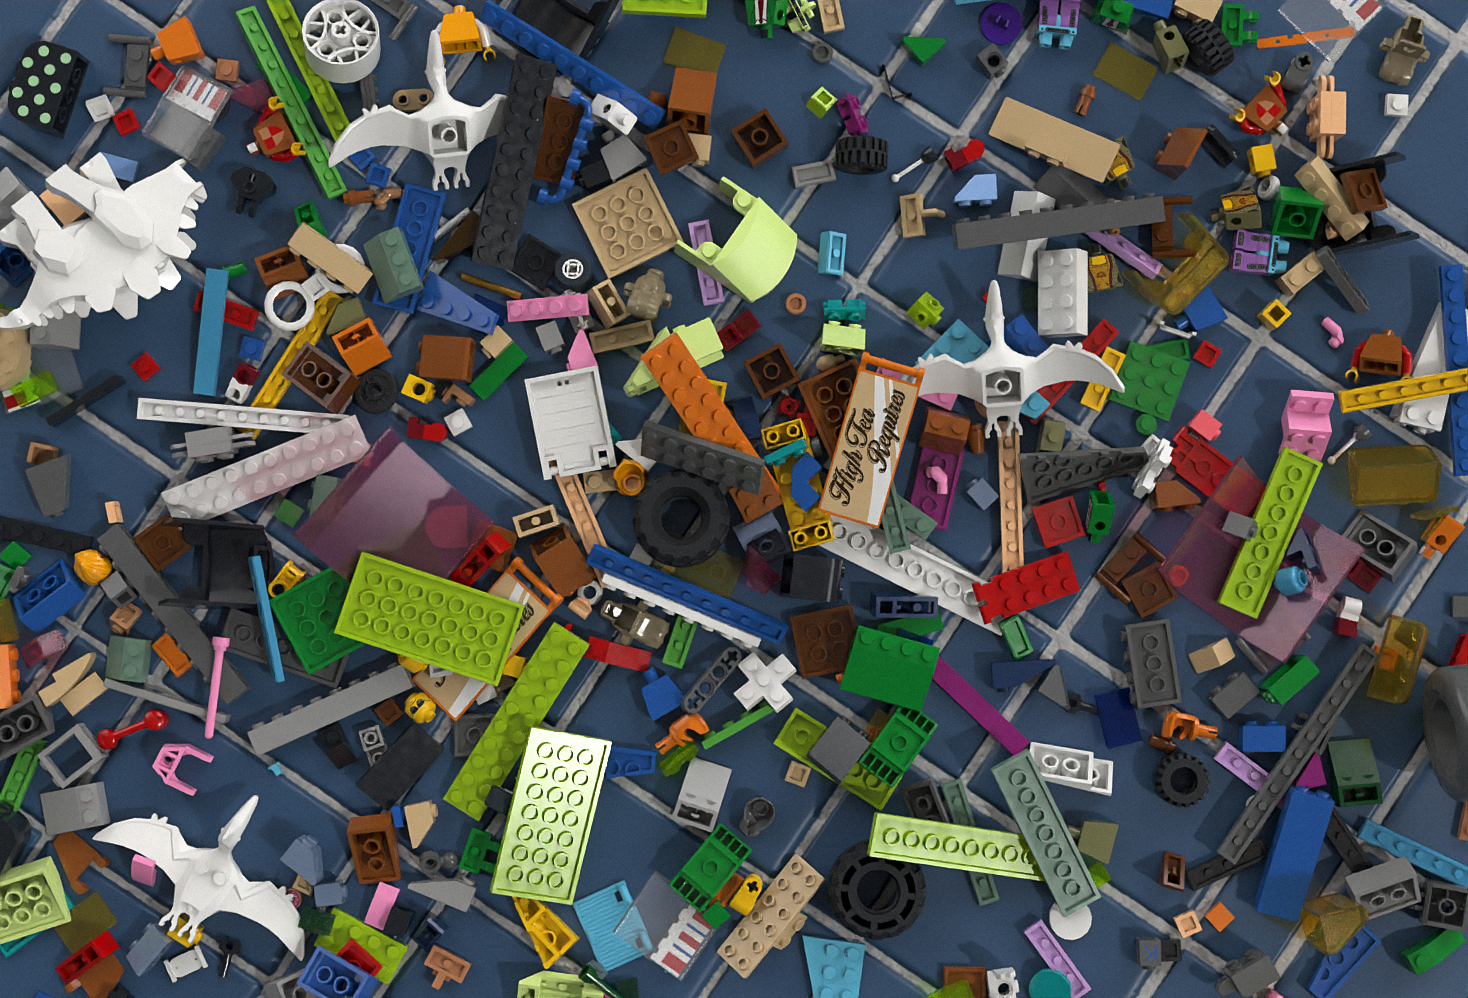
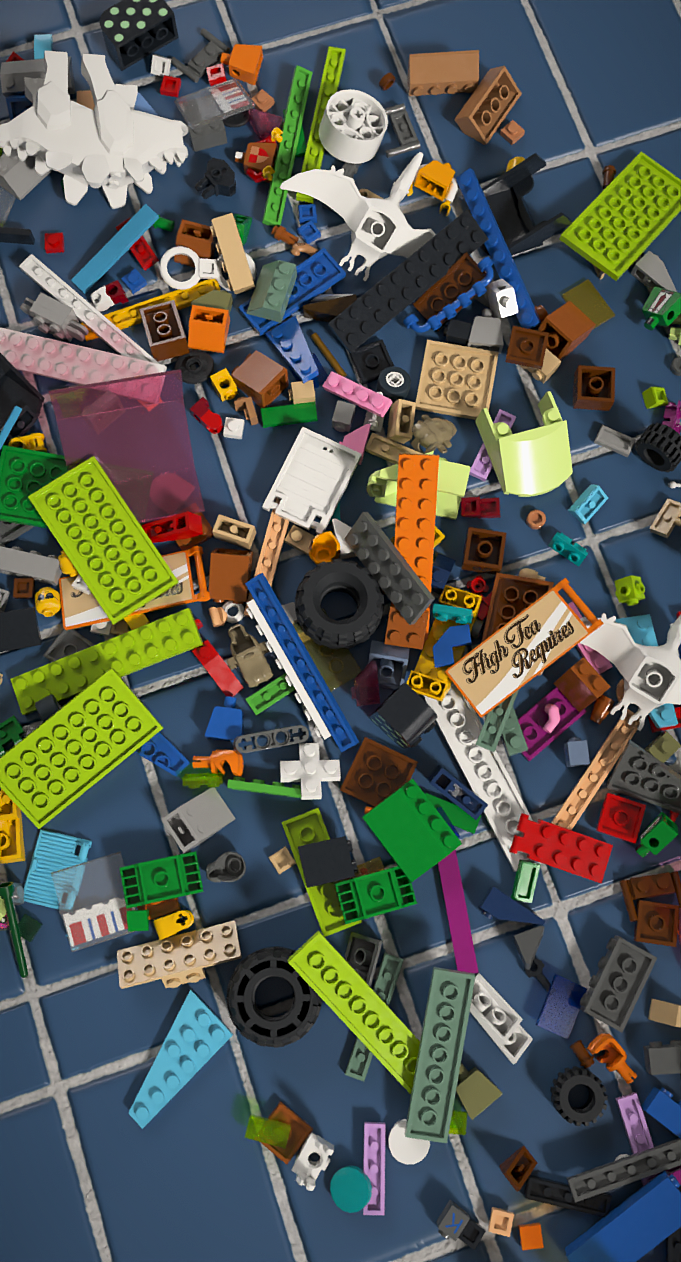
camera: 30 degrees right, 10 degrees down
(843, 339) = (551, 564): yellowish green slope -> none

